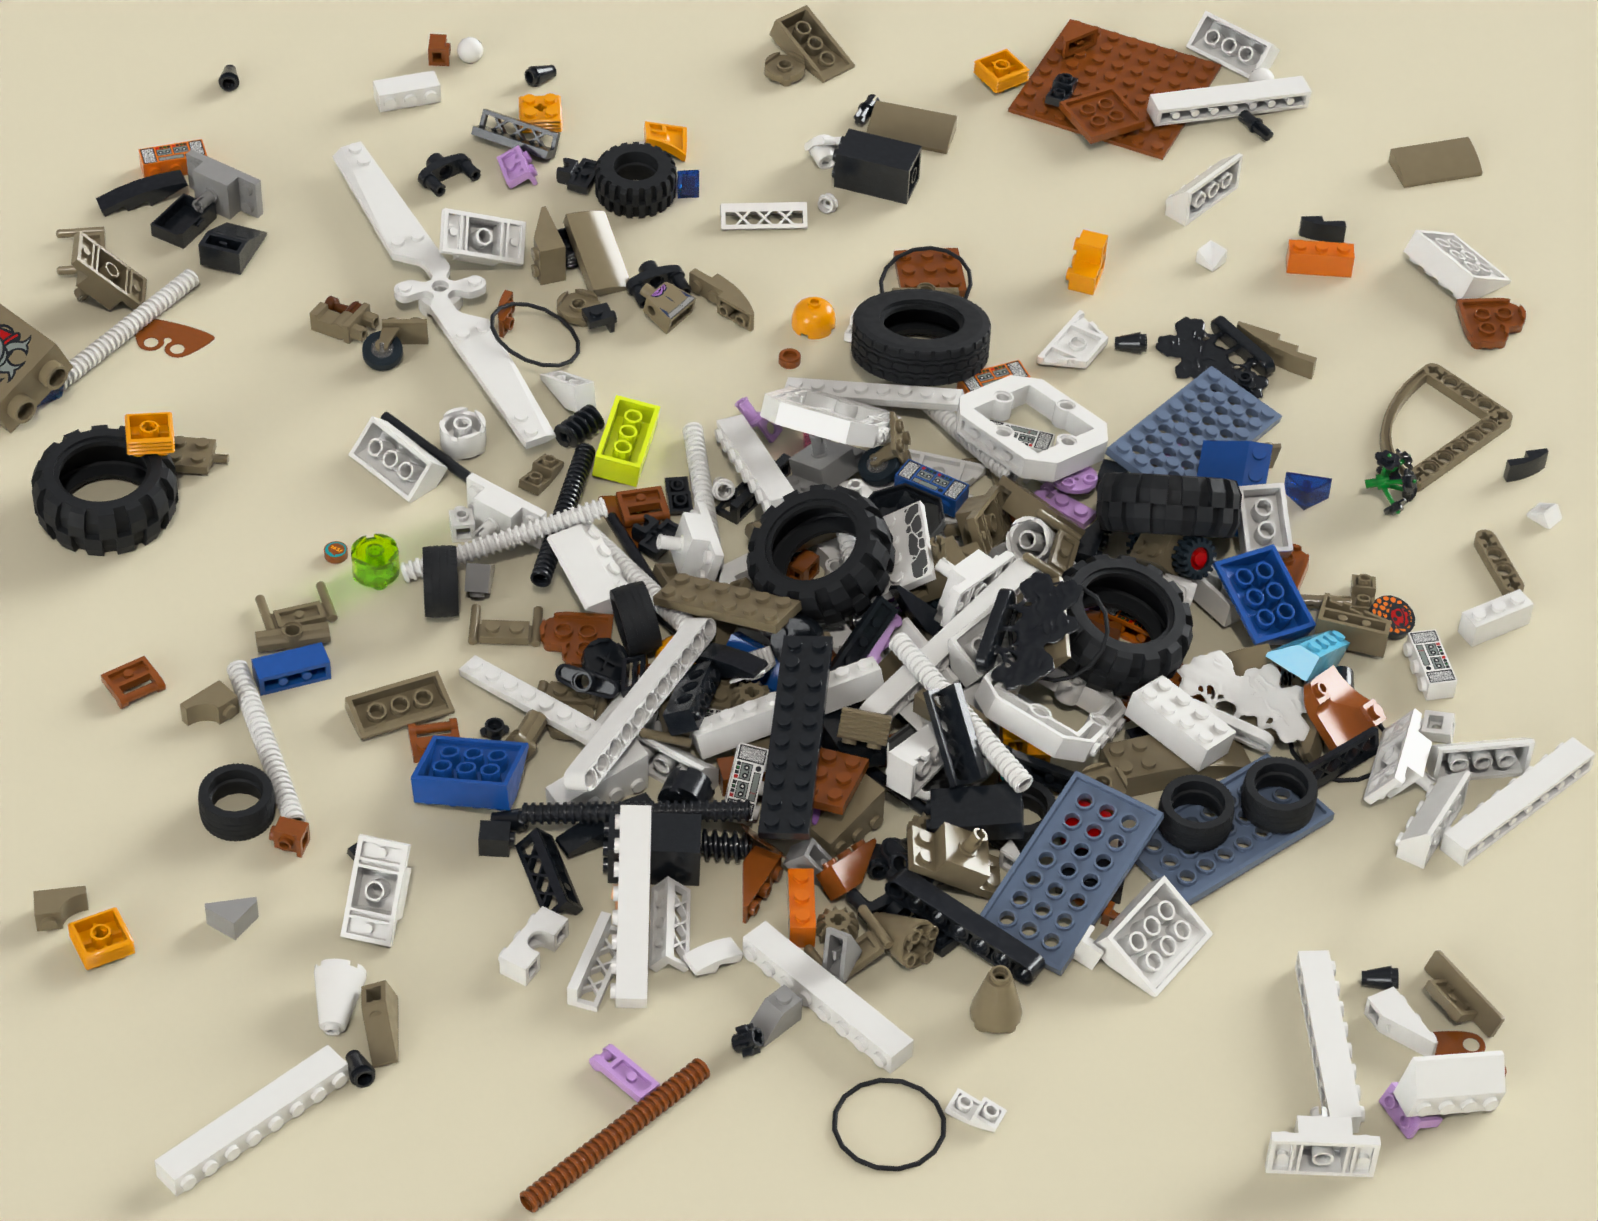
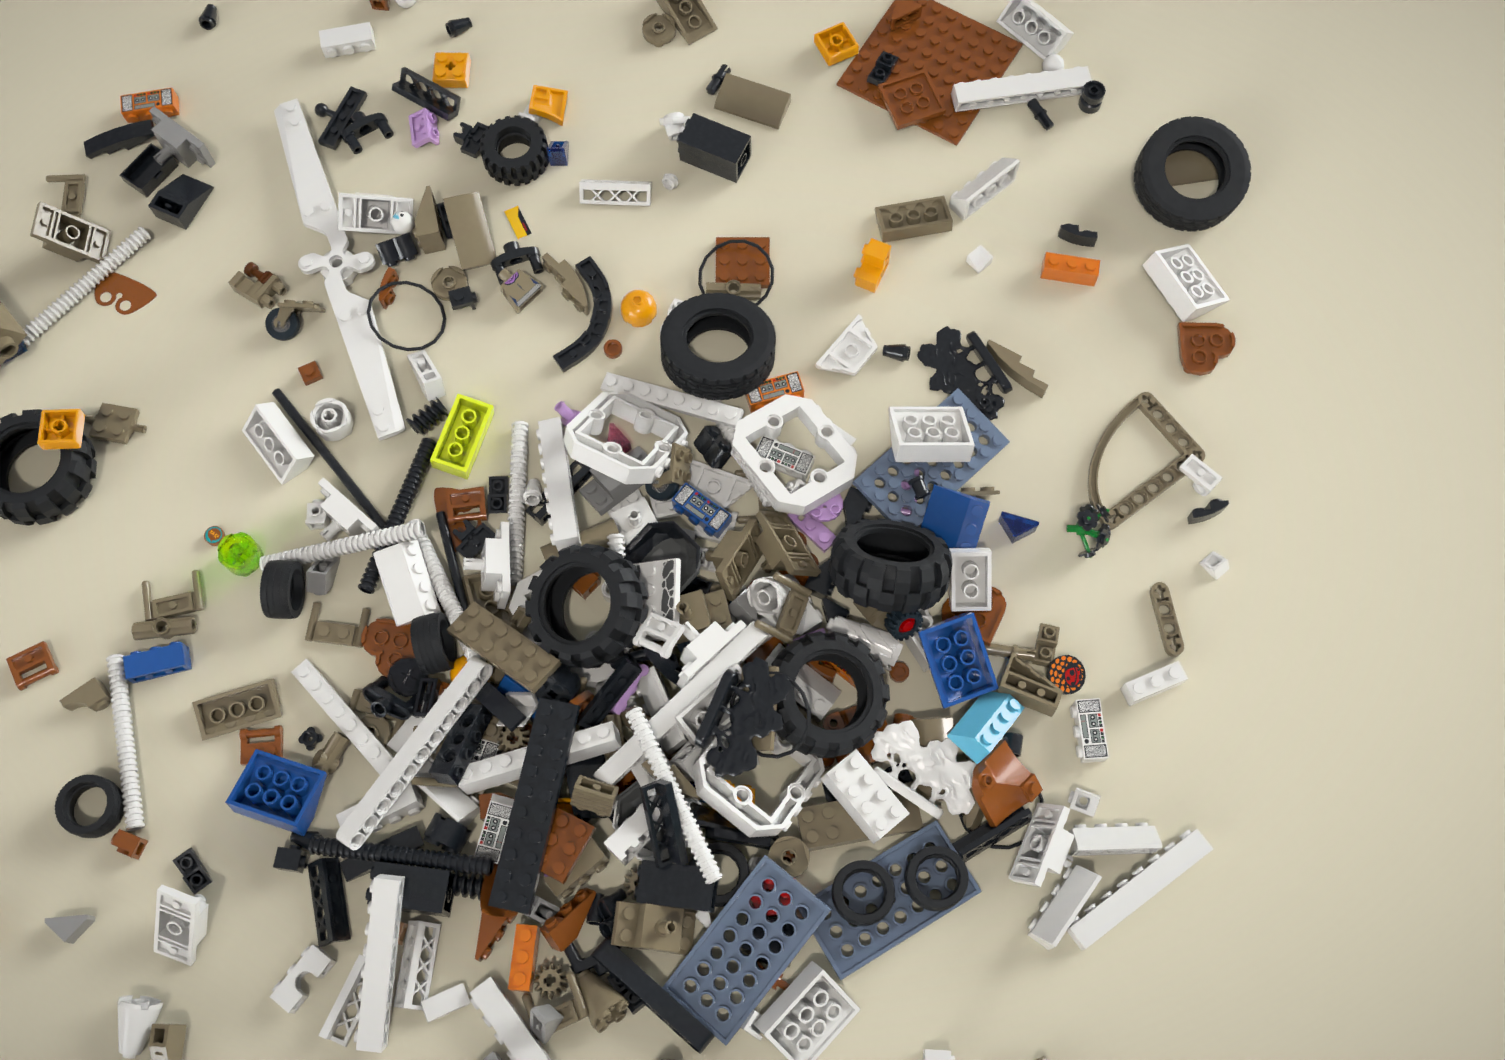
camera: 10 degrees right, 25 degrees up
(413, 163) = (341, 117): none -> black plate
(423, 398) = (310, 373): none -> dark orange plate
(509, 275) = (397, 249): none -> black brick
(517, 243) = (402, 222): none -> white piece
(542, 474) = (392, 463): dark tan slope -> none
(648, 250) = (517, 222): none -> yellow sticker
(768, 335) = (599, 320): none -> black plate
(913, 563) = (662, 629): none -> white plate
(933, 433) = (713, 447): none -> black brick
(1129, 223) = (913, 219): none -> dark tan slope
(1186, 448) = (919, 487): none -> black bush
(1189, 402) = (930, 434): none -> white slope
(1199, 630) = (899, 672): none -> dark orange tile
(1313, 105) = (1091, 97): none -> black wheel
(1438, 198) = (1215, 143): none -> black tyre
(1515, 431) = (1203, 476): none -> white plate

